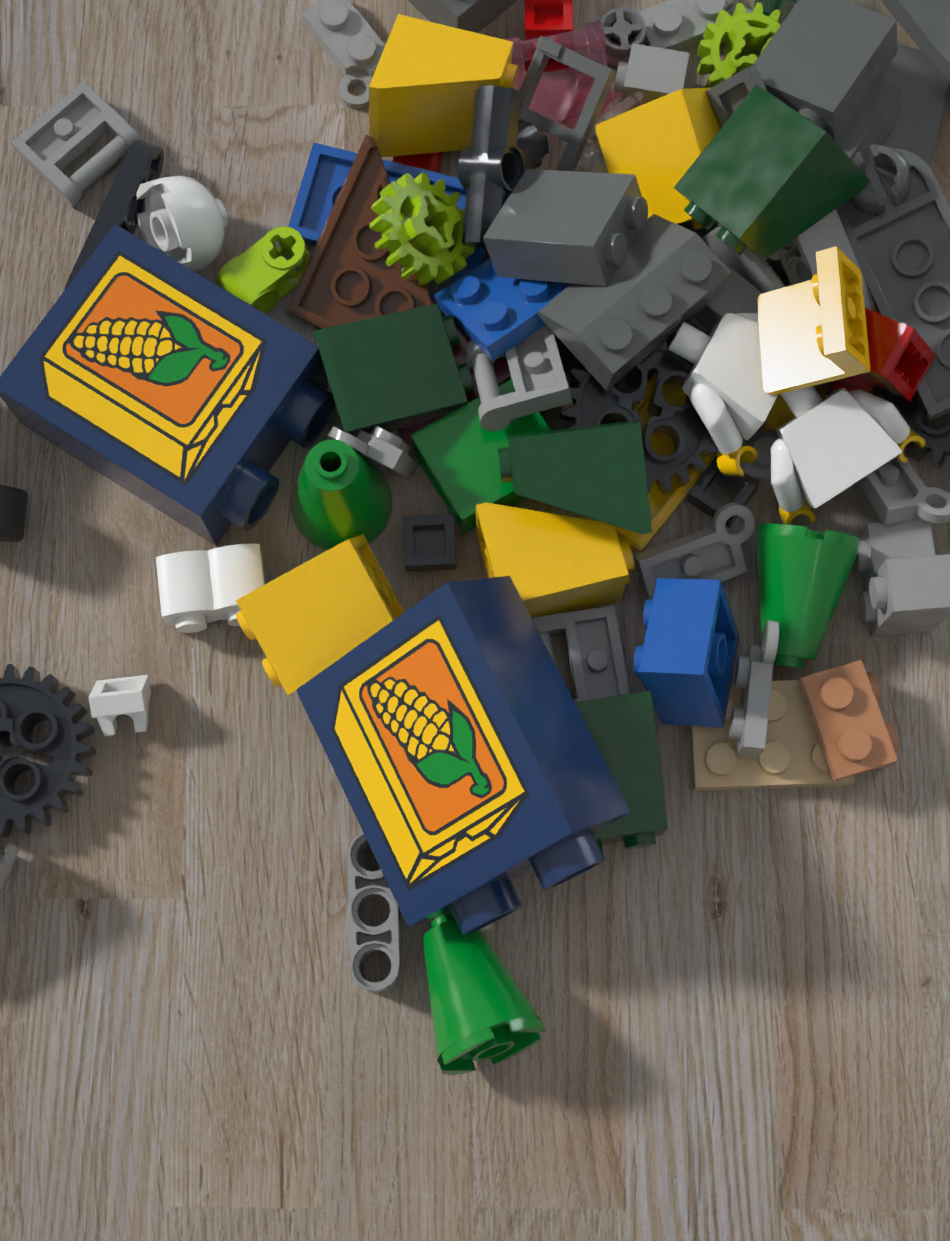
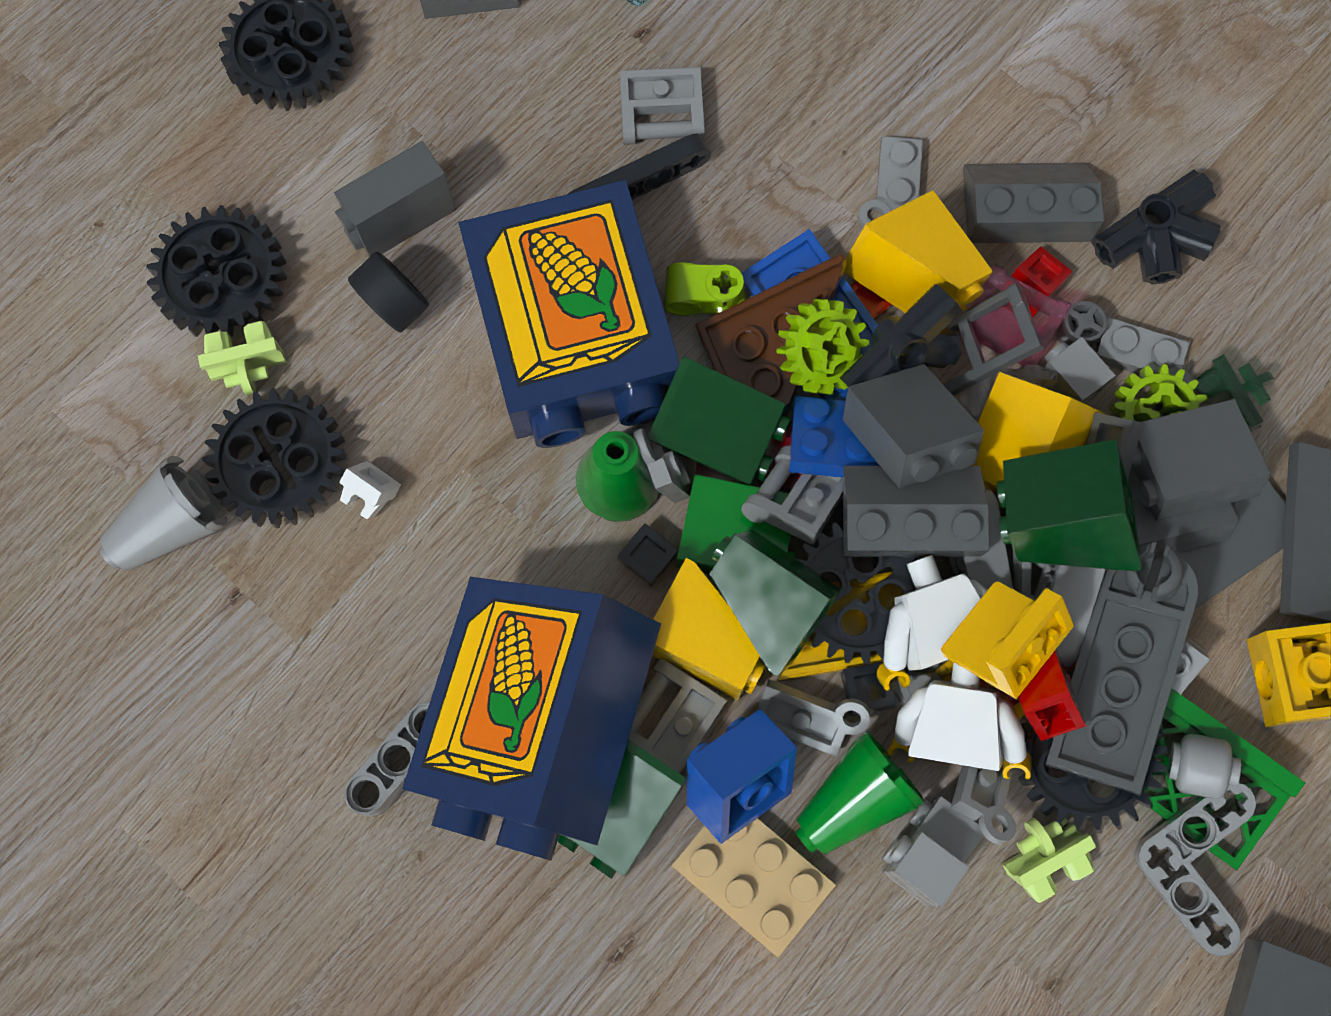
camera: 40 degrees right, 0 degrees up
(182, 220) = (678, 213): white cylinder -> none
(204, 584) = (488, 464): white brick -> none
(318, 612) = (534, 541): yellow slope -> none
(474, 1000) = (405, 872): green cone -> none
(754, 676) = (769, 828): light grey hinge -> none
(849, 721) = (808, 914): nougat bracket -> none

